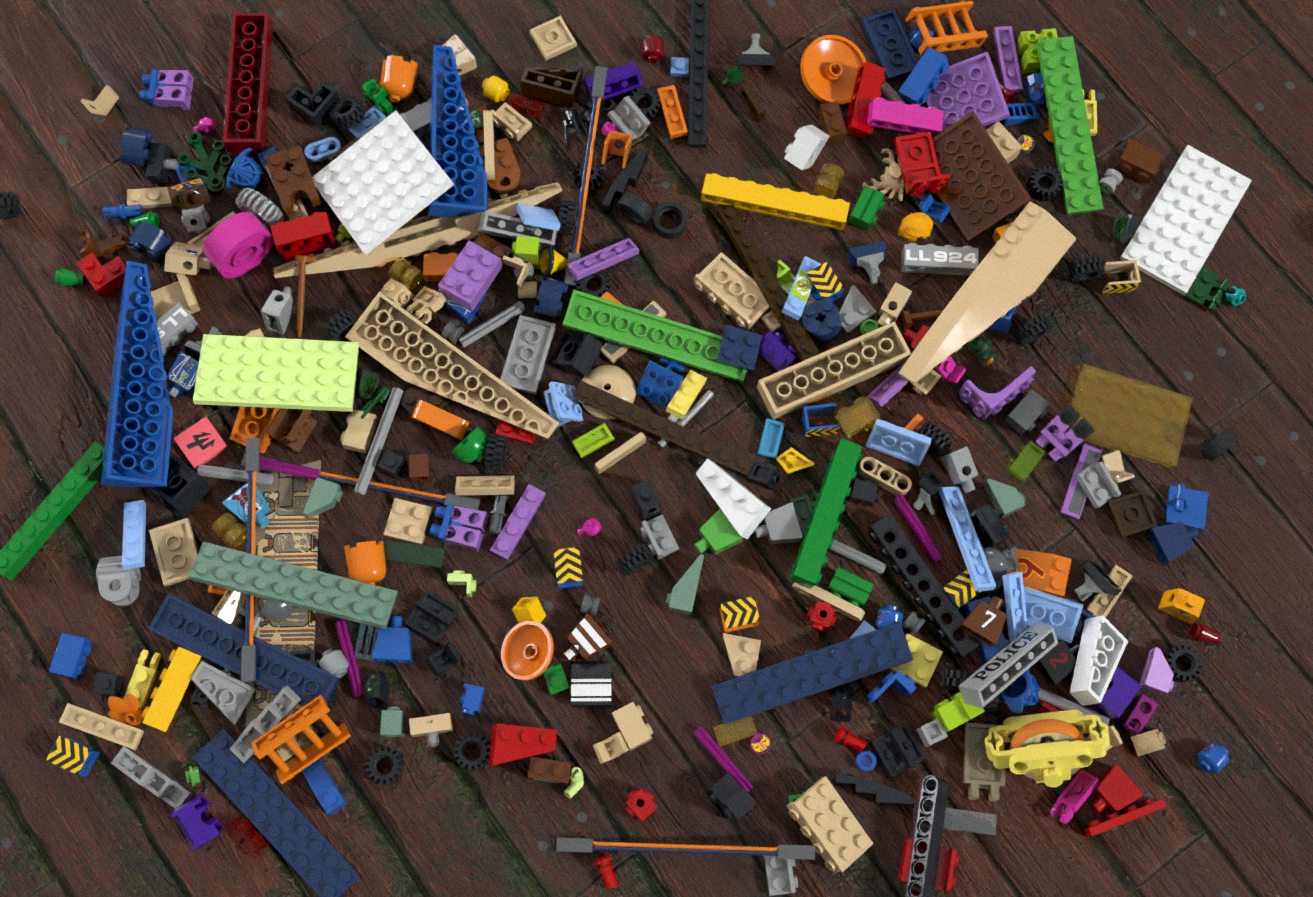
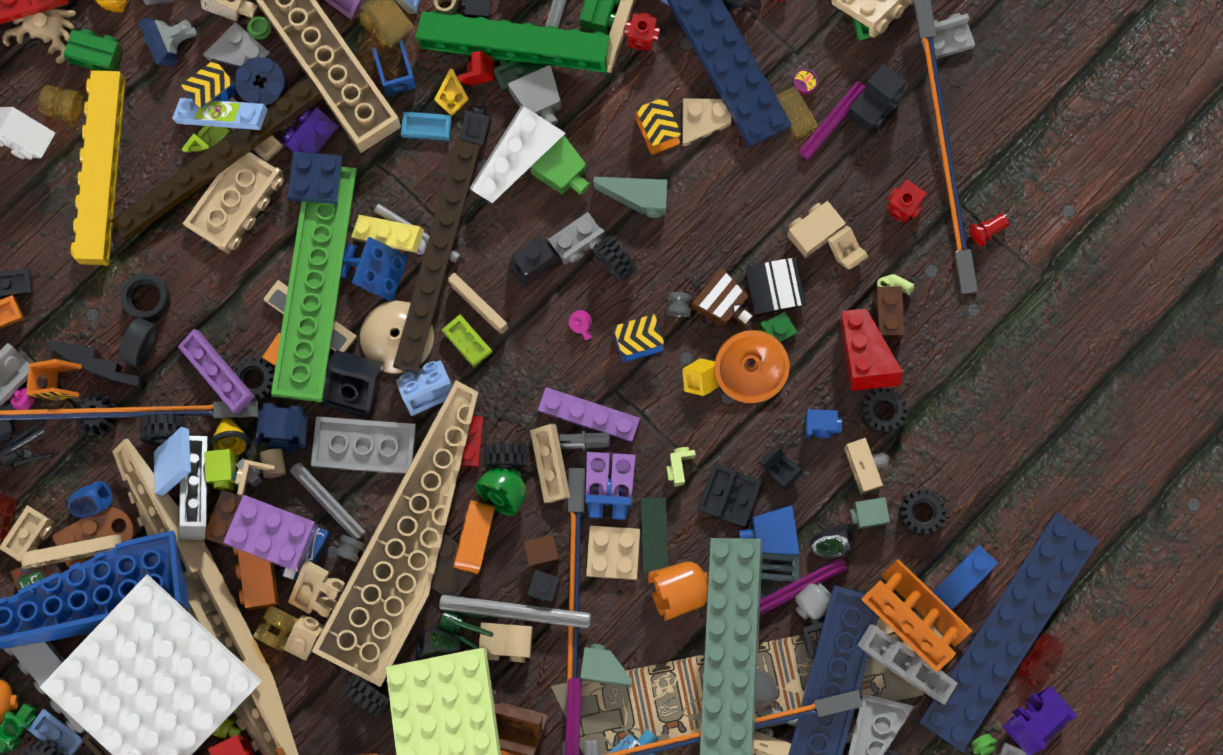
camera: 95 degrees left, 5 degrees up
(526, 165) = (90, 500): none -> blue rock
(808, 484) = (478, 70): none -> red panel

